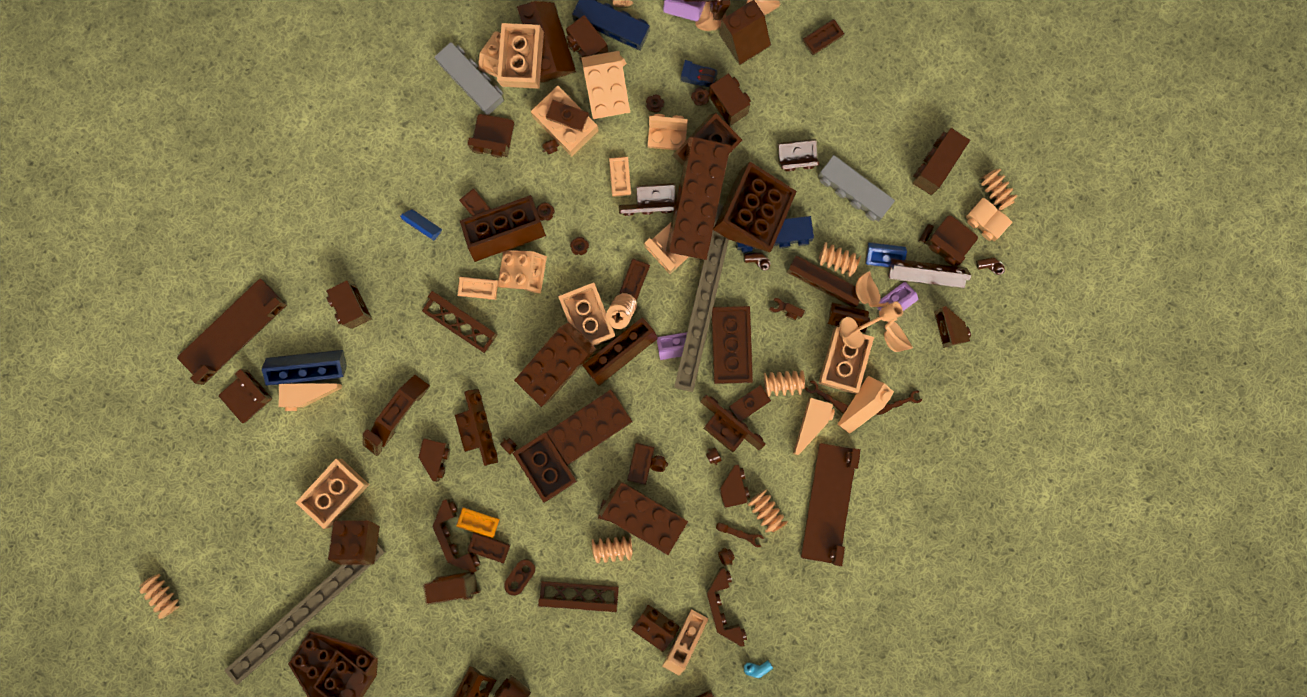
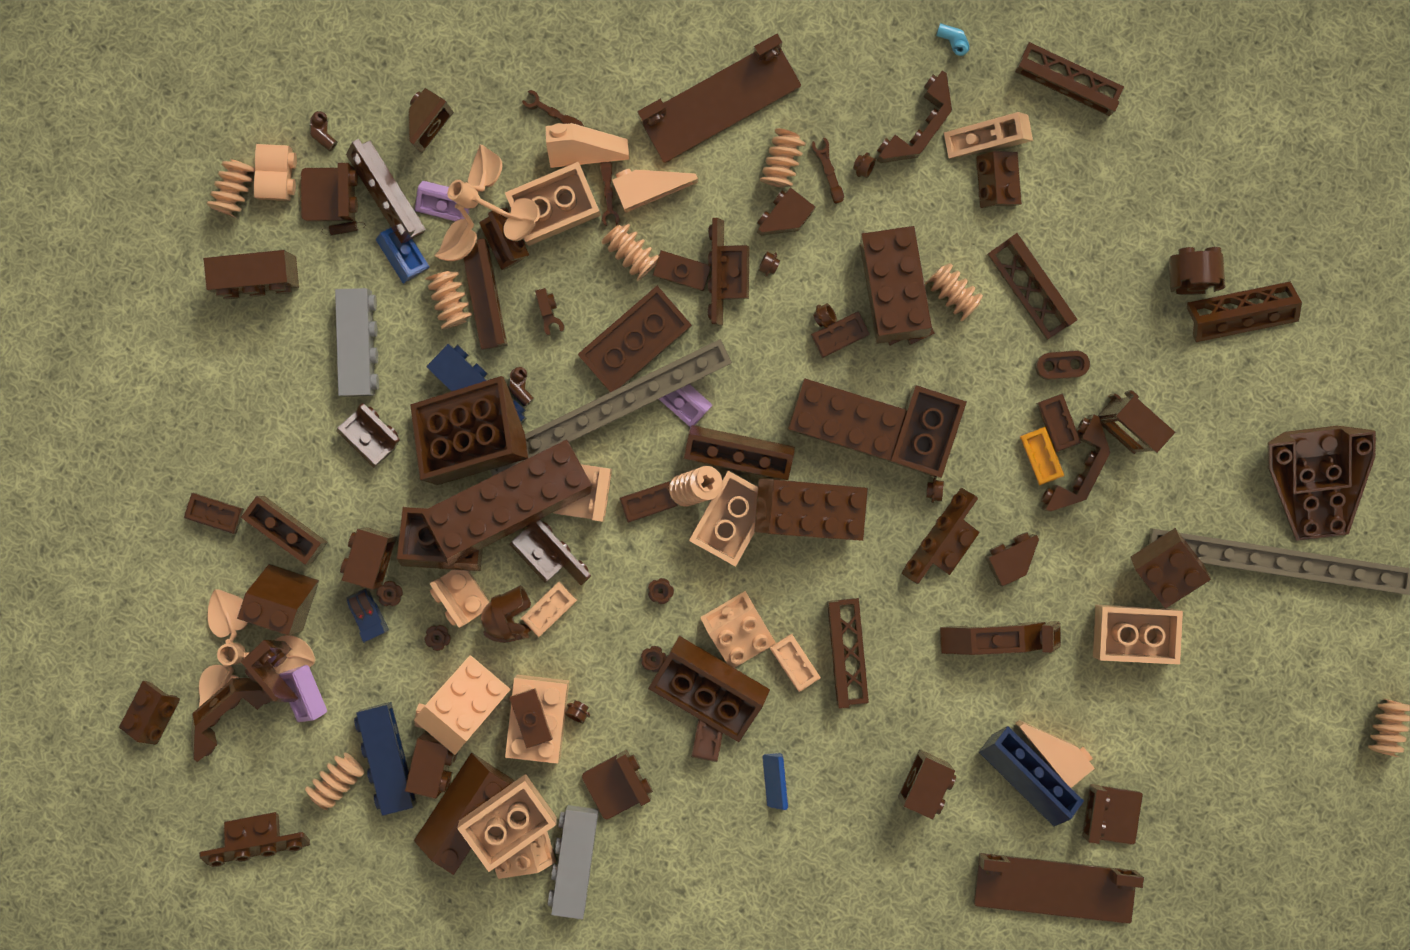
camera: 130 degrees left, 5 degrees up
(638, 145) = (499, 614): none -> reddish brown helmet
(782, 66) = (284, 529): none -> reddish brown brick

